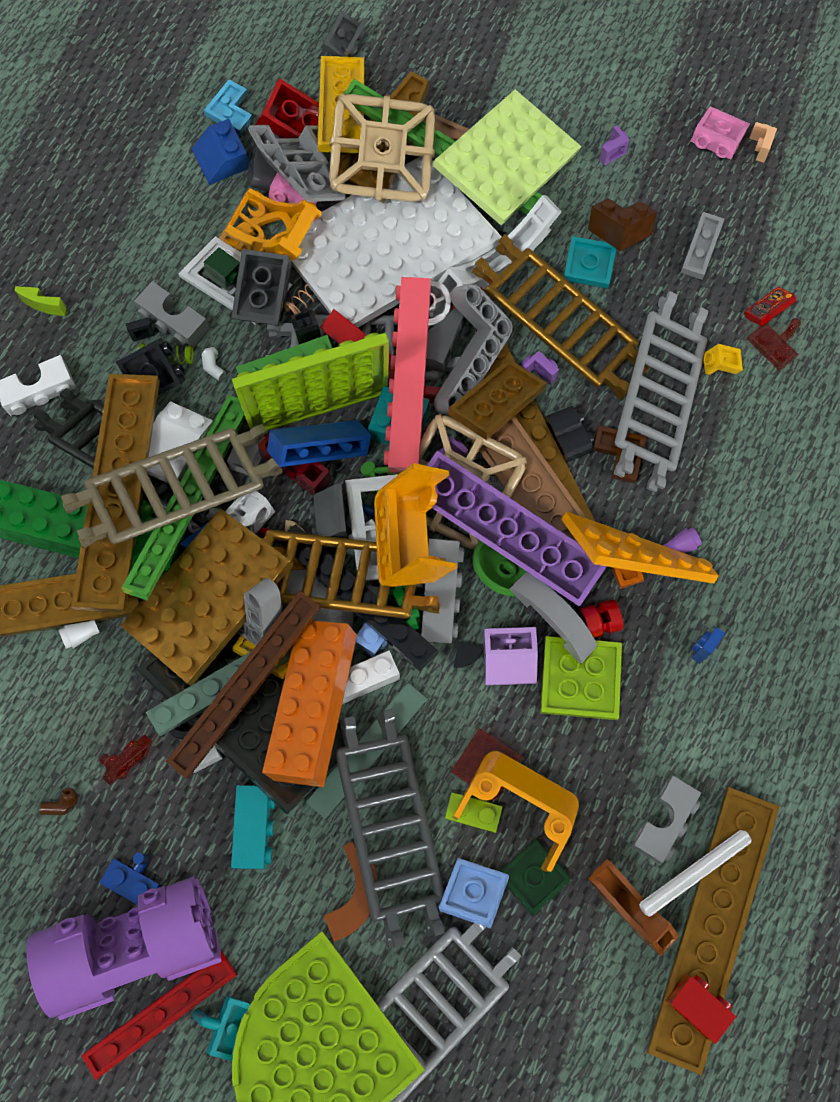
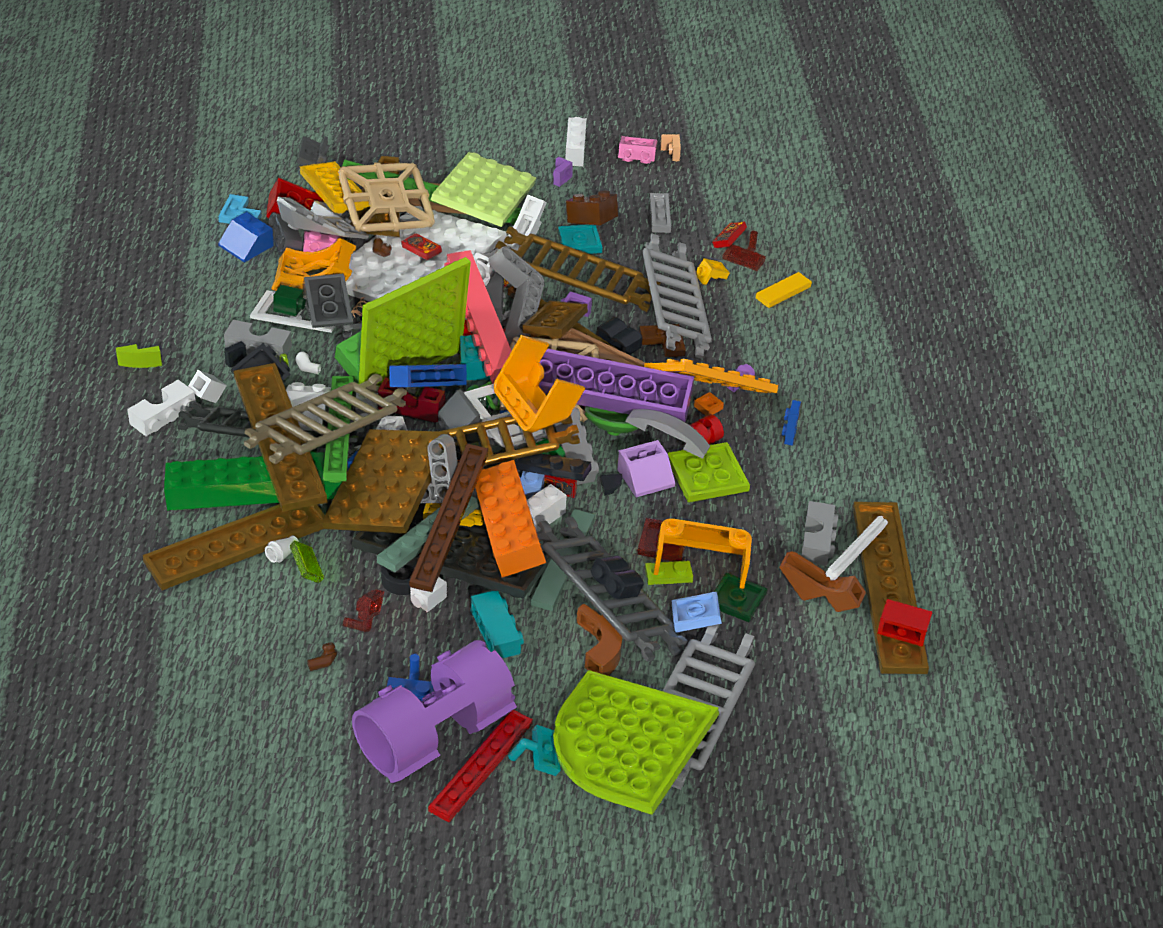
camera: 25 degrees left, 30 degrees down
(88, 372) = (207, 386): none -> white brick
(94, 662) = (306, 562): none -> clear neon green tile
(350, 218) = (380, 248): none -> reddish brown arm
(396, 233) = (421, 246): none -> red tile
(397, 828) = (617, 577): none -> black brick
(650, 102) = (576, 140): none -> white brick
(797, 414) = (783, 289): none -> yellow tile

